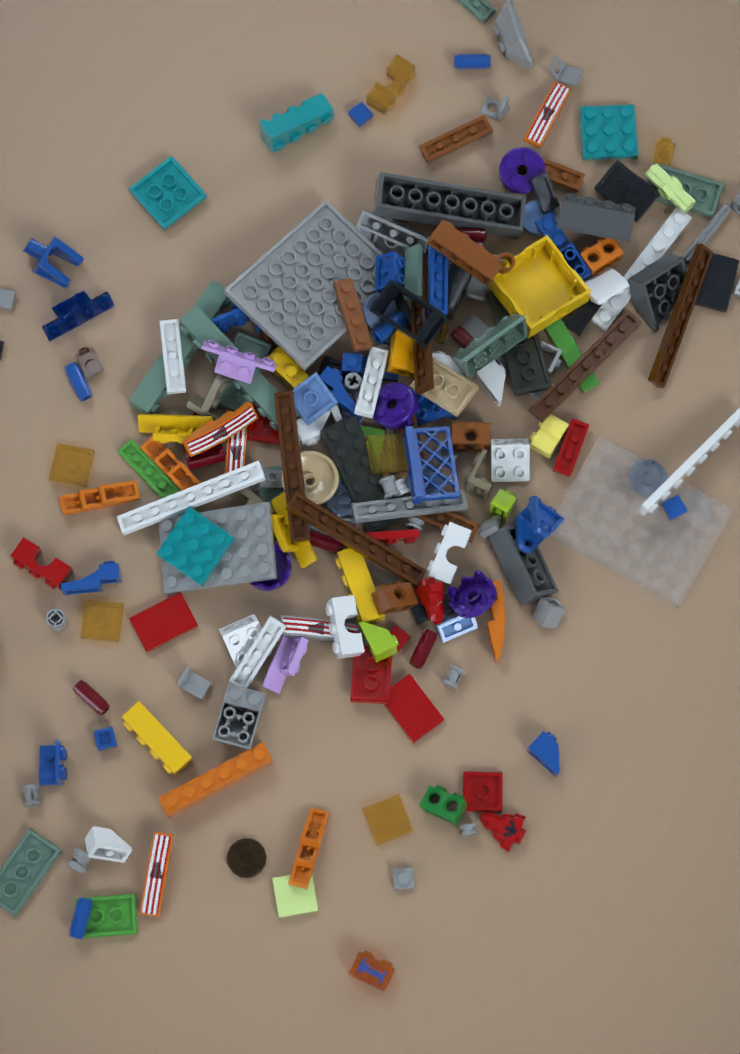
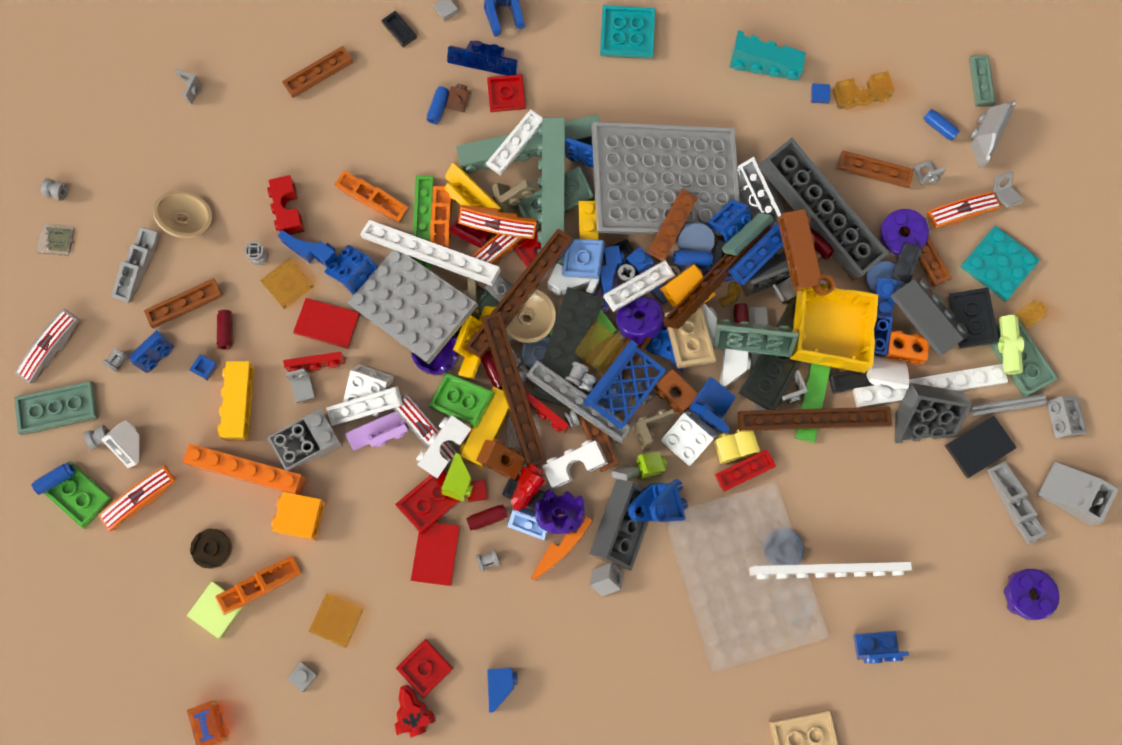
camera: 45 degrees right, 0 degrees up
(39, 707) = (183, 303): none -> dark orange plate
(71, 465) = (376, 158): clear yellow tile -> none
(121, 324) = (506, 93): none -> red tile
(140, 565) = (351, 268): none -> blue bracket
(186, 658) = (315, 362): none -> red plate
(195, 546) = (396, 288): teal plate -> none
(235, 363) = (552, 184): lavender bracket -> none
(288, 774) = (298, 516): none -> light orange piece
(322, 582) = (462, 399): none -> bright green tile
(430, 327) = (717, 281): black window -> none
(441, 808) = (380, 652): green brick -> none
(468, 829) = (384, 688): light grey bush -> none
(505, 421) = (713, 404): none -> blue bracket
(674, 507) = (781, 591): blue tile -> none
(680, 316) = (927, 448): reddish brown plate -> none

